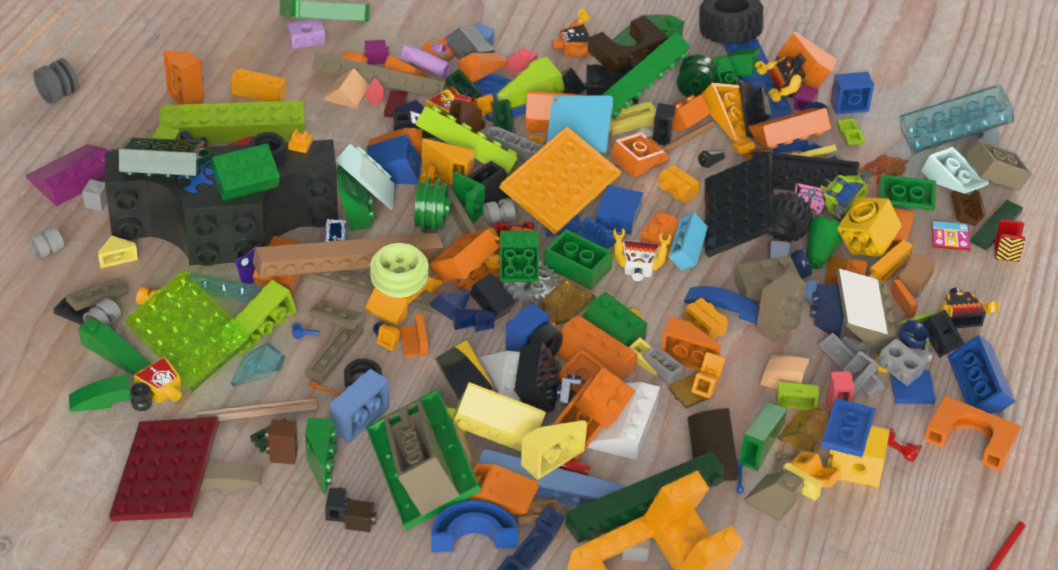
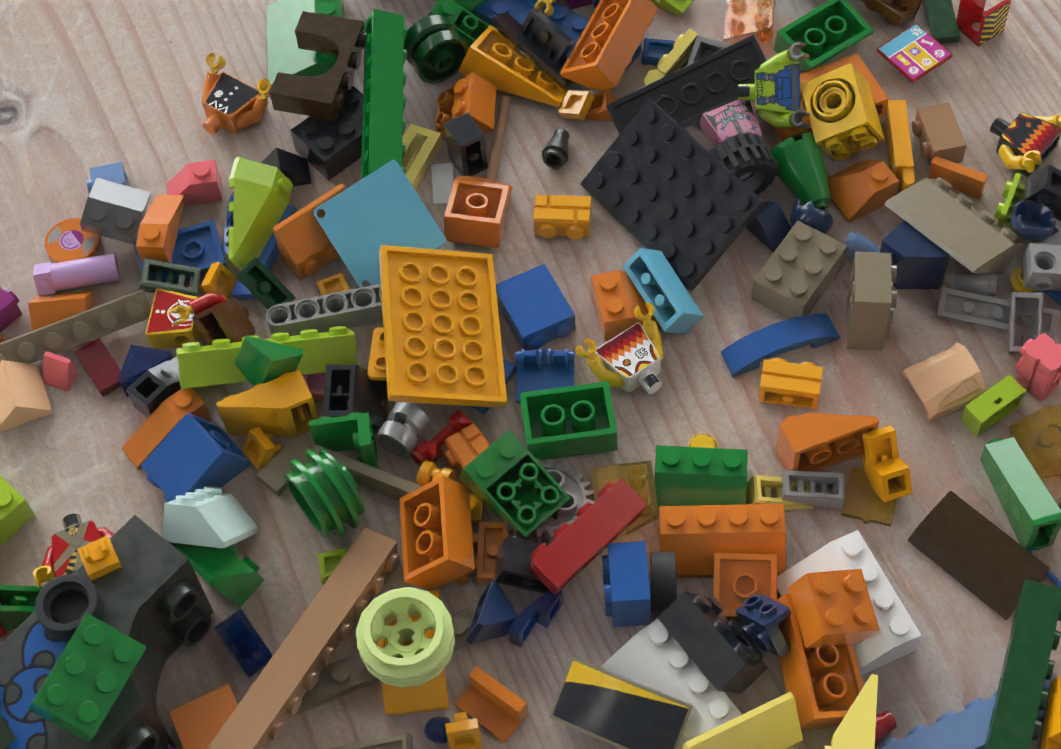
camera: 35 degrees left, 15 degrees up
(463, 135) = (266, 360): none -> green slope
(518, 295) = (587, 536): none -> red brick

